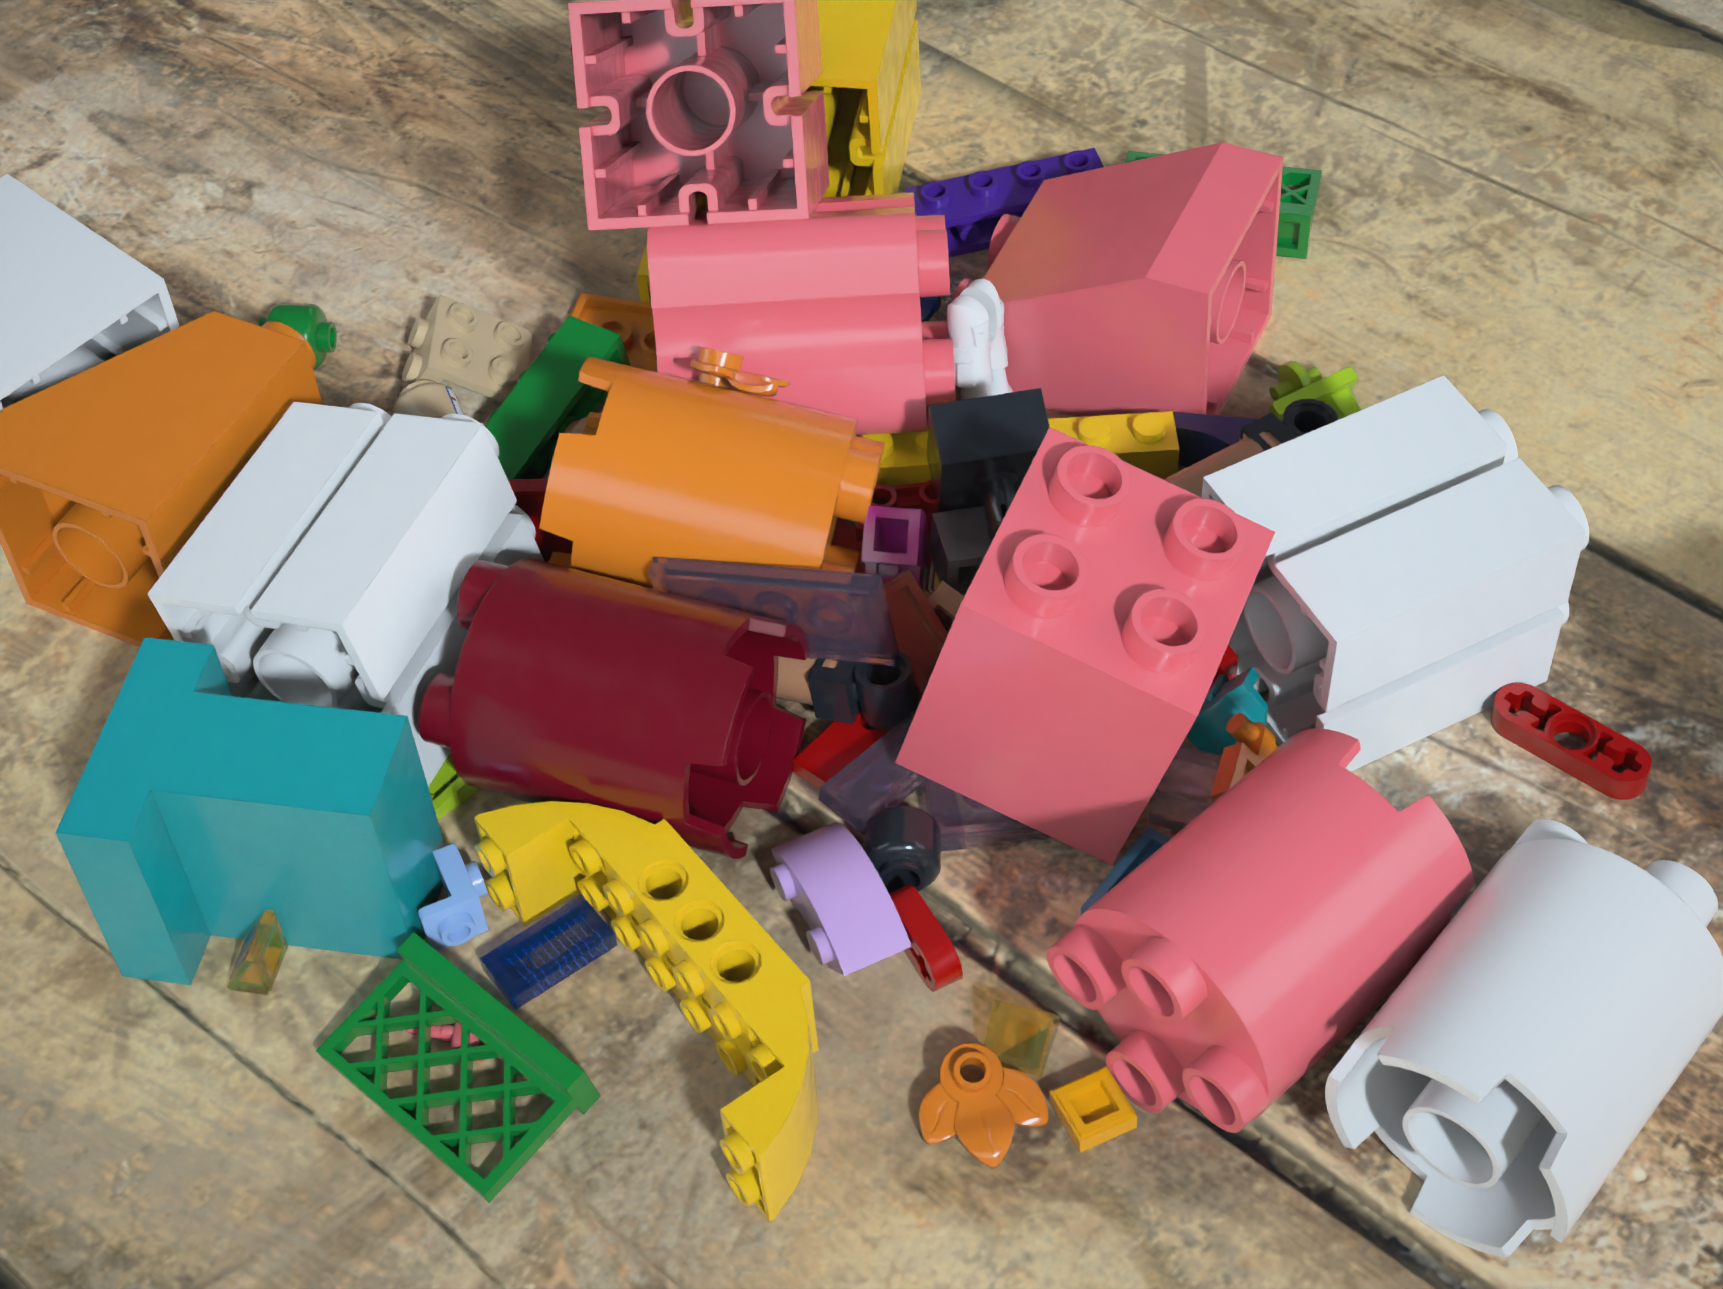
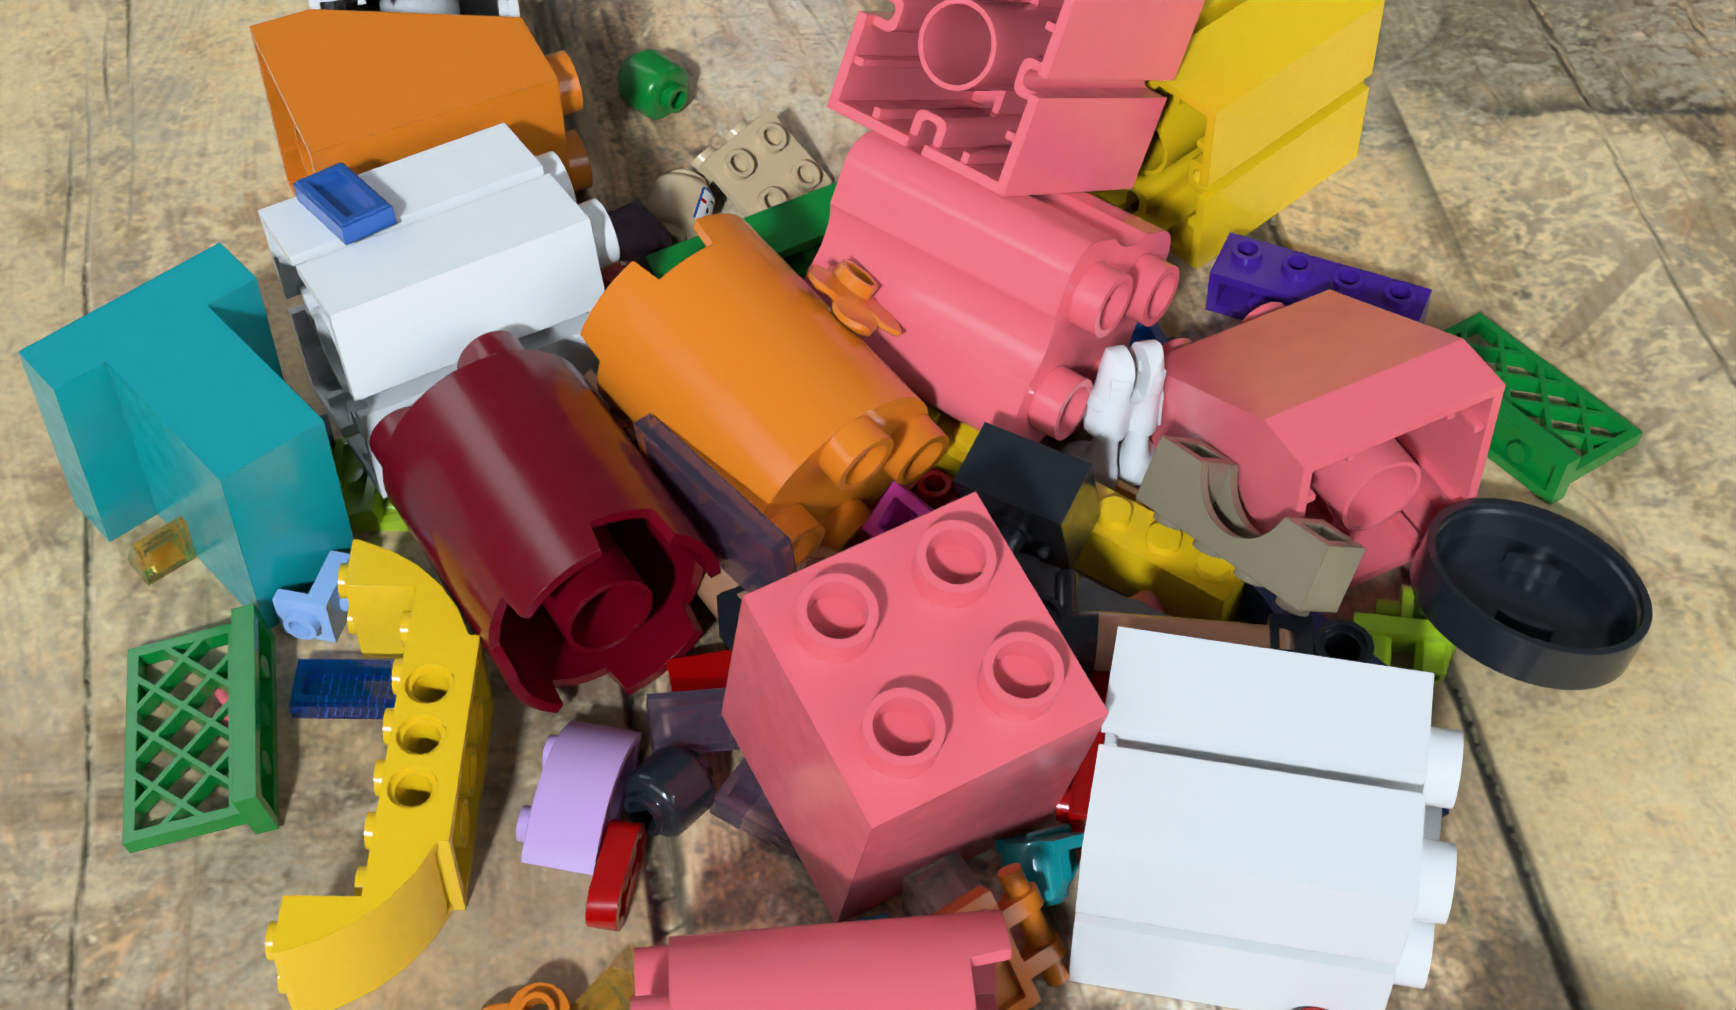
camera: 35 degrees right, 0 degrees up
(235, 538) = (344, 203): none -> blue tile
(1102, 376) = (1298, 560): none -> dark tan arch
(1372, 318) = (1530, 594): none -> black brick

